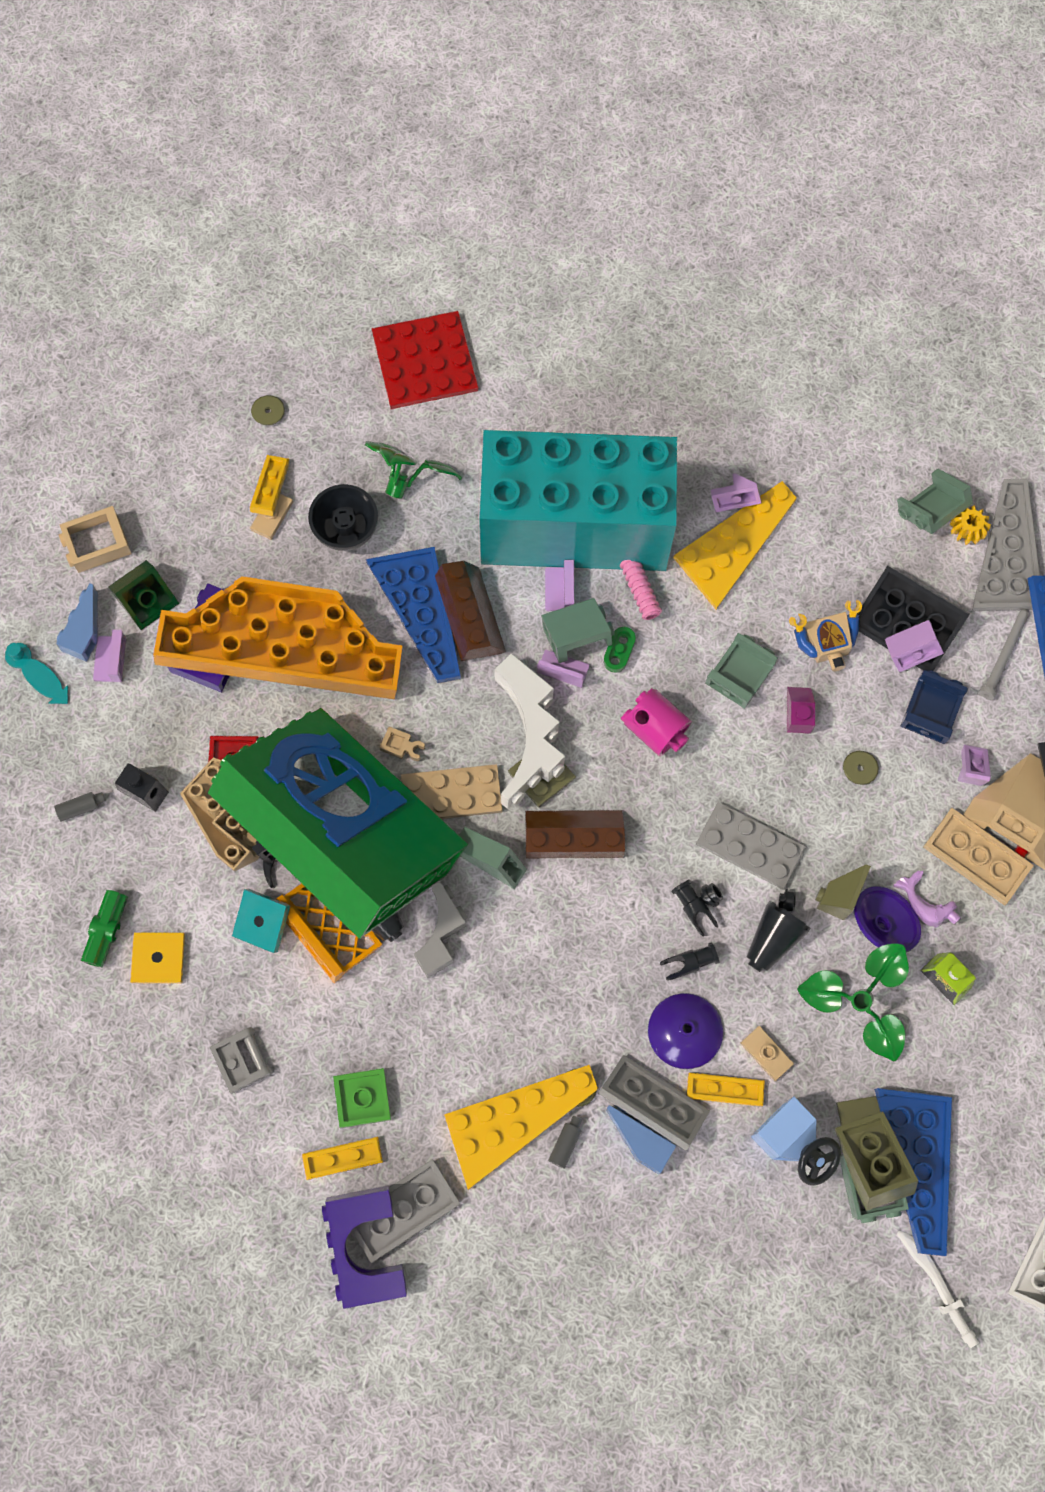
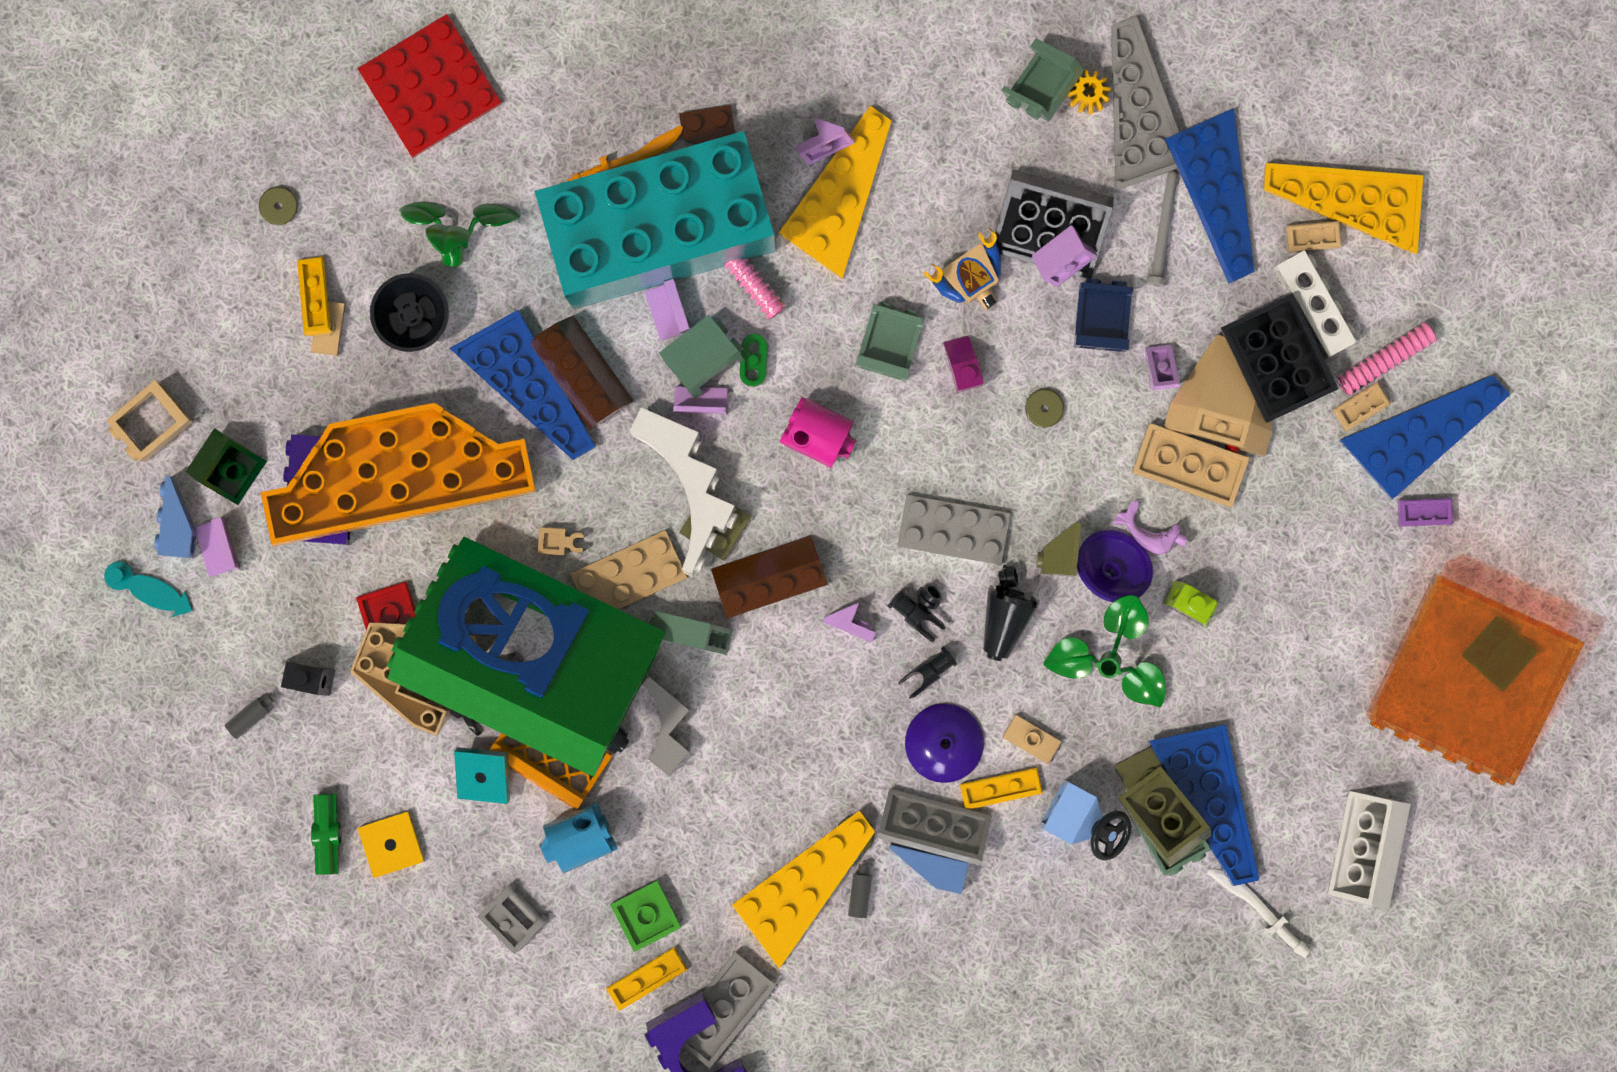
camera: 20 degrees left, 15 degrees up
(325, 1004) = (577, 838): none -> dark azure cylinder
(627, 891) = (843, 621): none -> lavender slope

